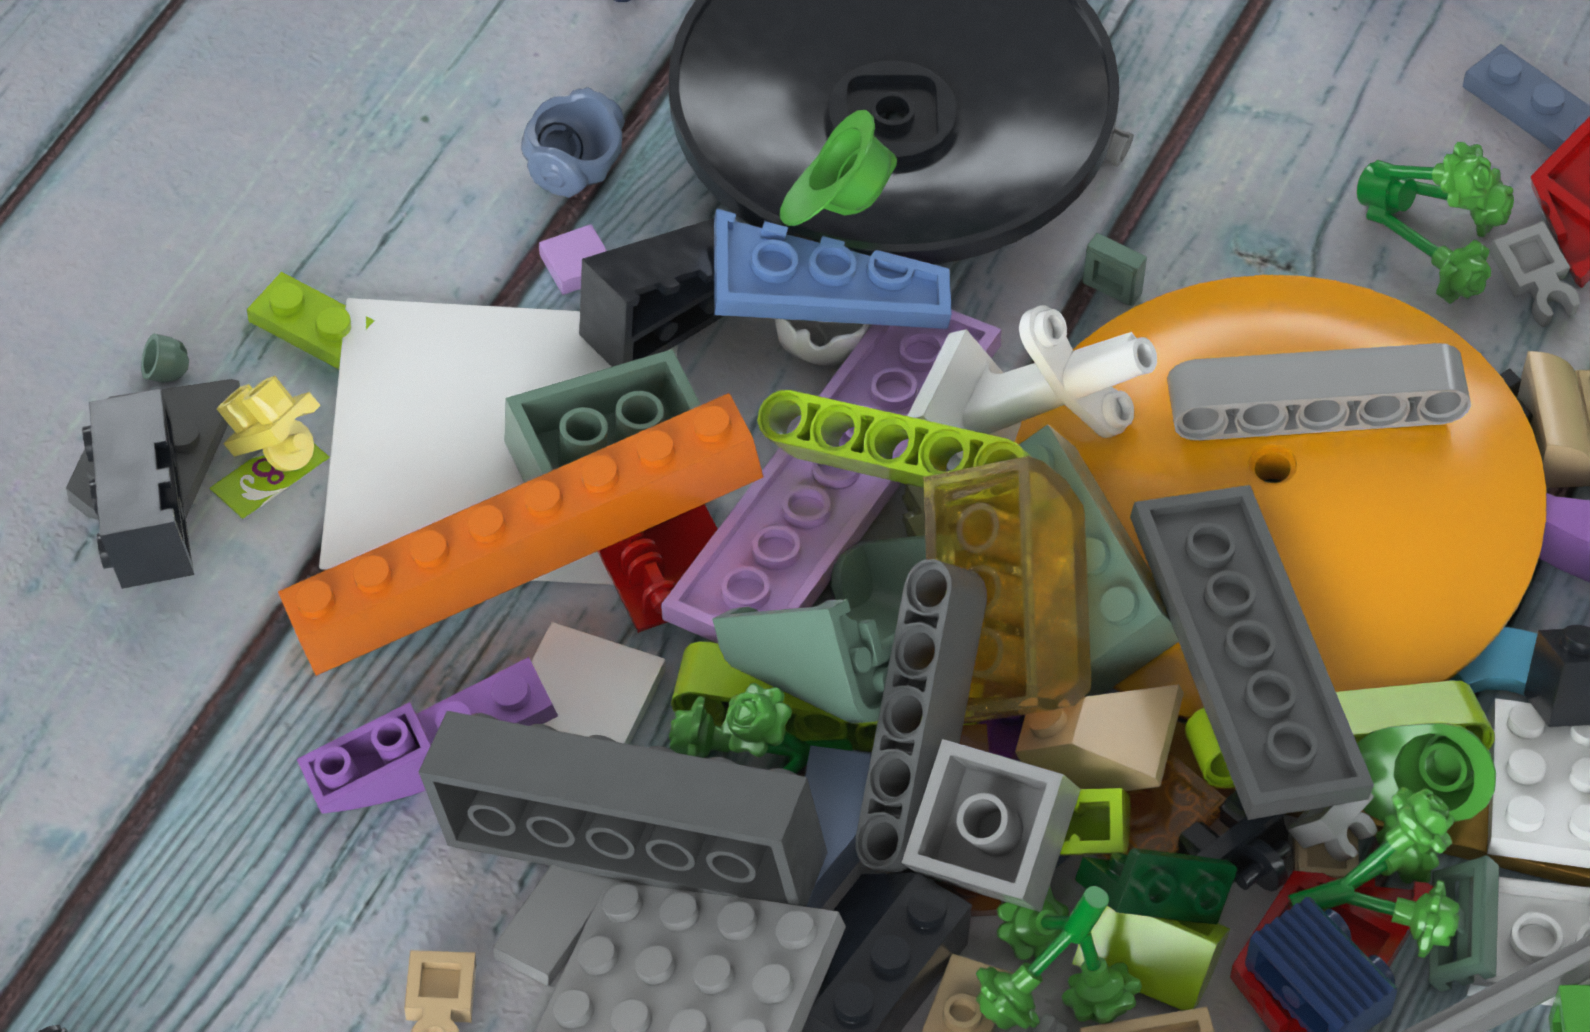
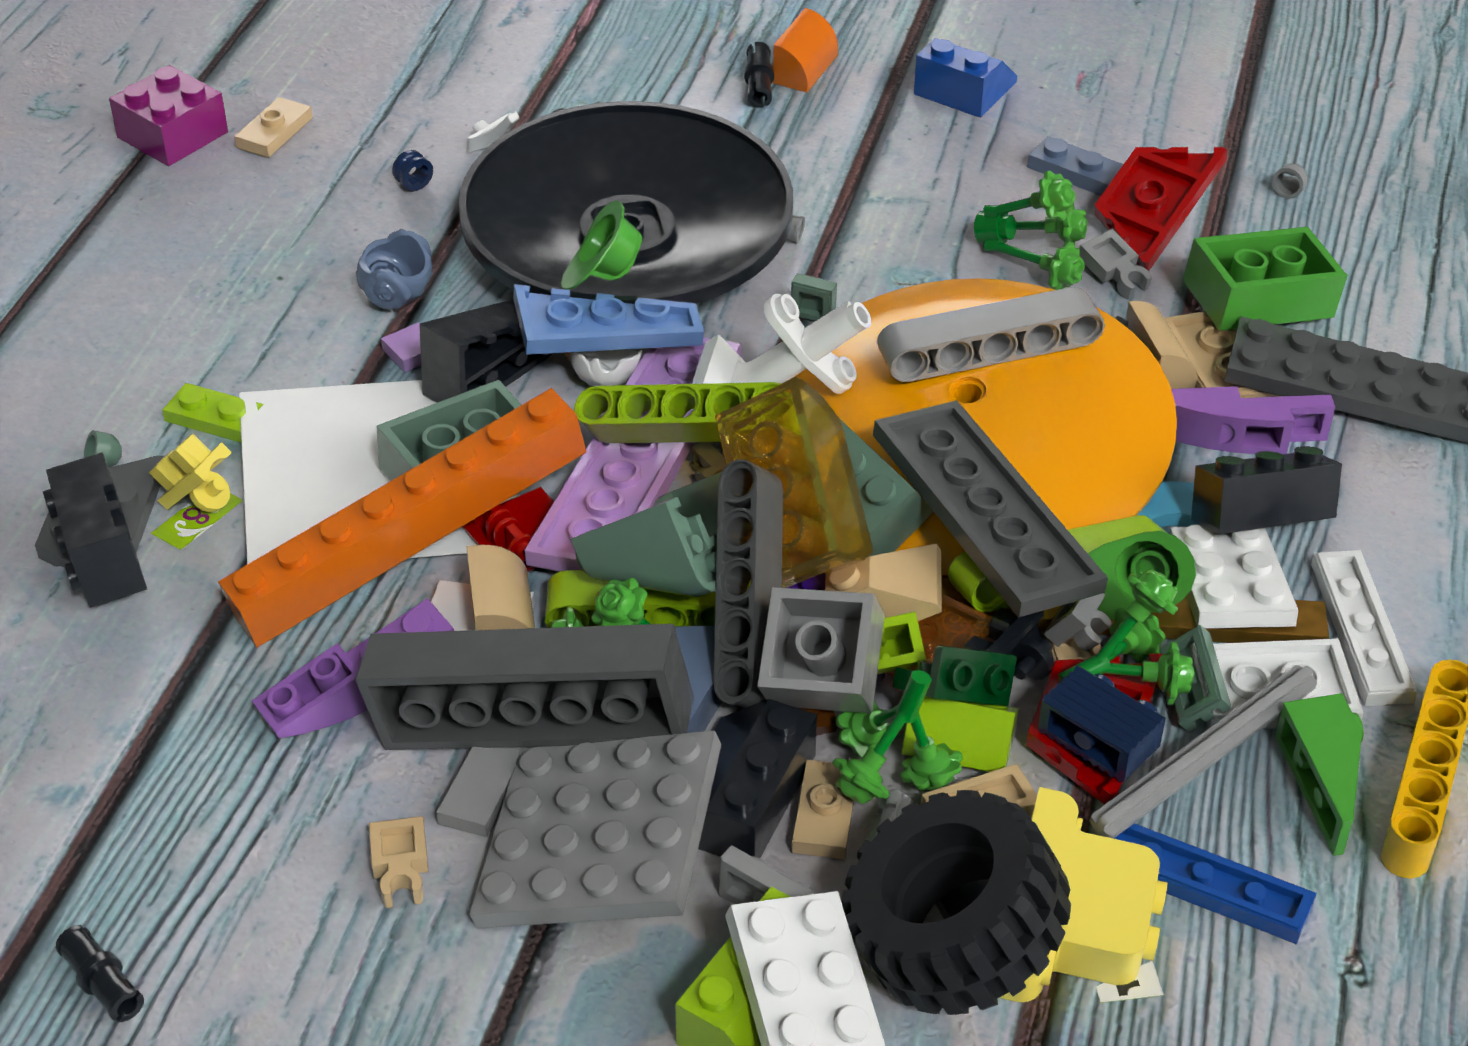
camera: 10 degrees left, 10 degrees down
(619, 667) = (499, 589): none -> tan brick

